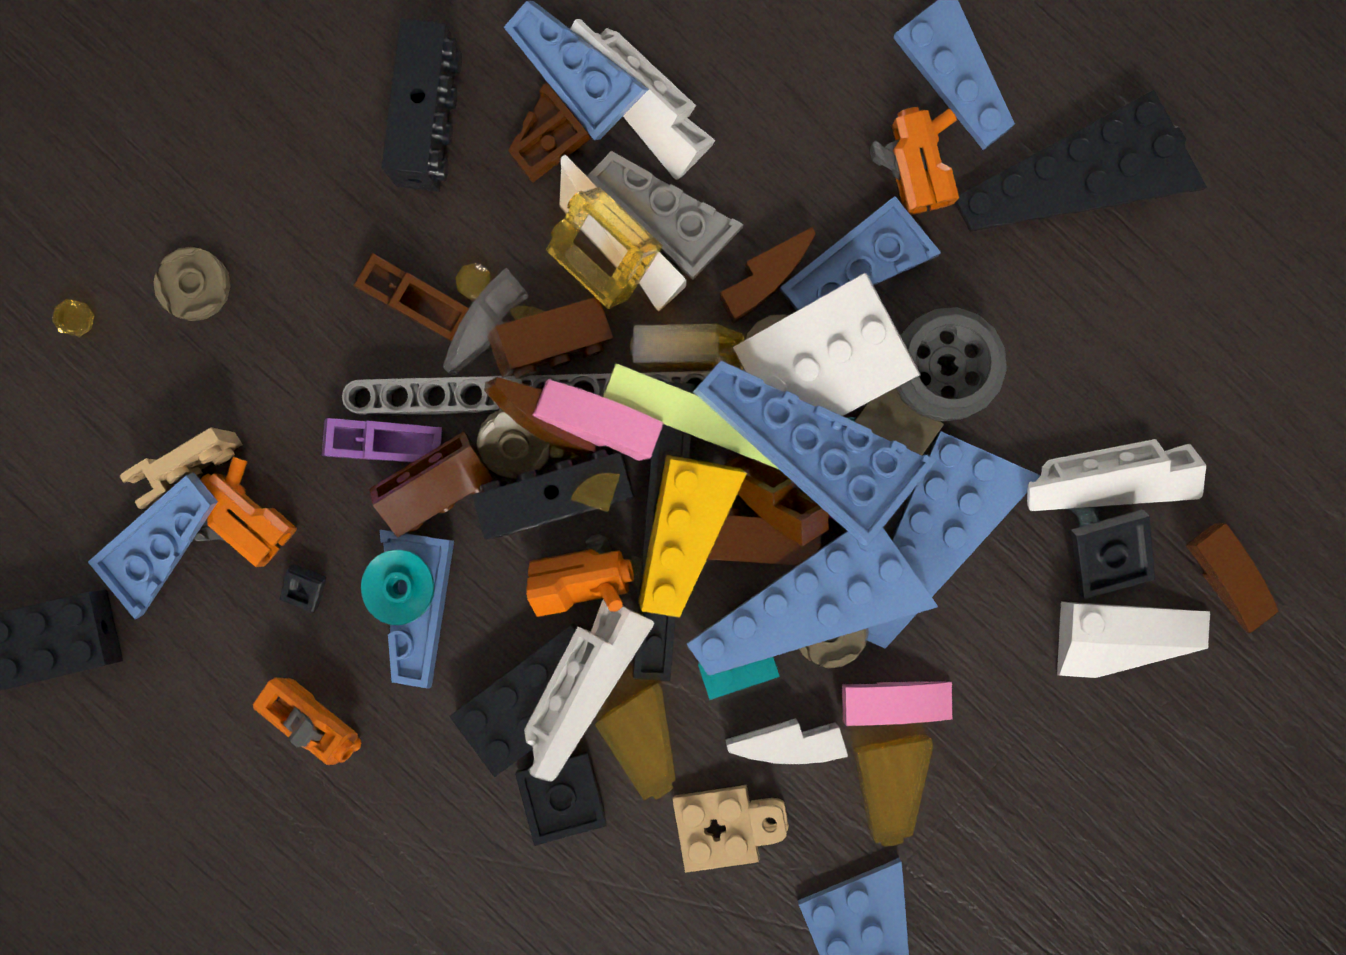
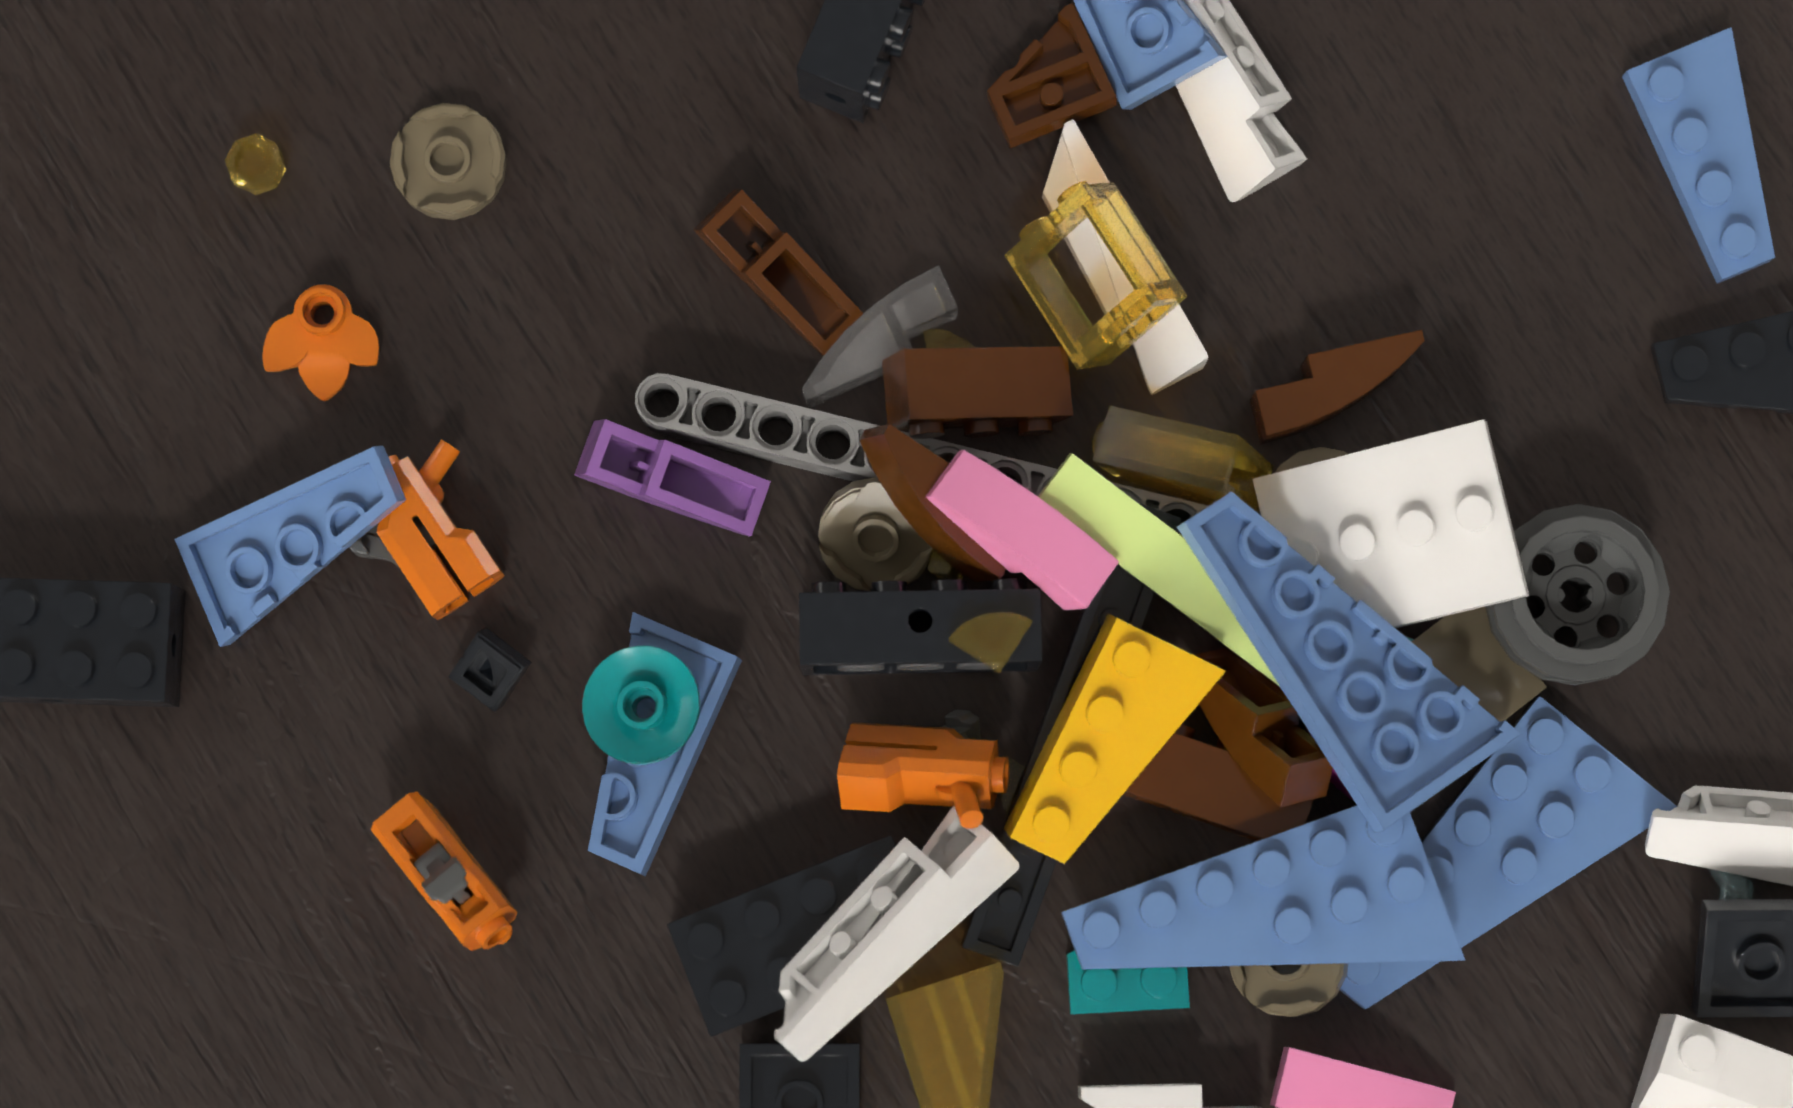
camera: 15 degrees right, 5 degrees down
(145, 421) = (321, 350): none -> orange plate
(206, 448) = (406, 416): tan plate -> none
(430, 485) = (732, 563): reddish brown brick -> none
(472, 280) = (878, 272): clear yellow tile -> none
(685, 227) = (1228, 278): light grey wing -> none
(878, 246) = (1519, 387): medium blue wing -> none
(917, 161) = (1609, 273): orange piece -> none

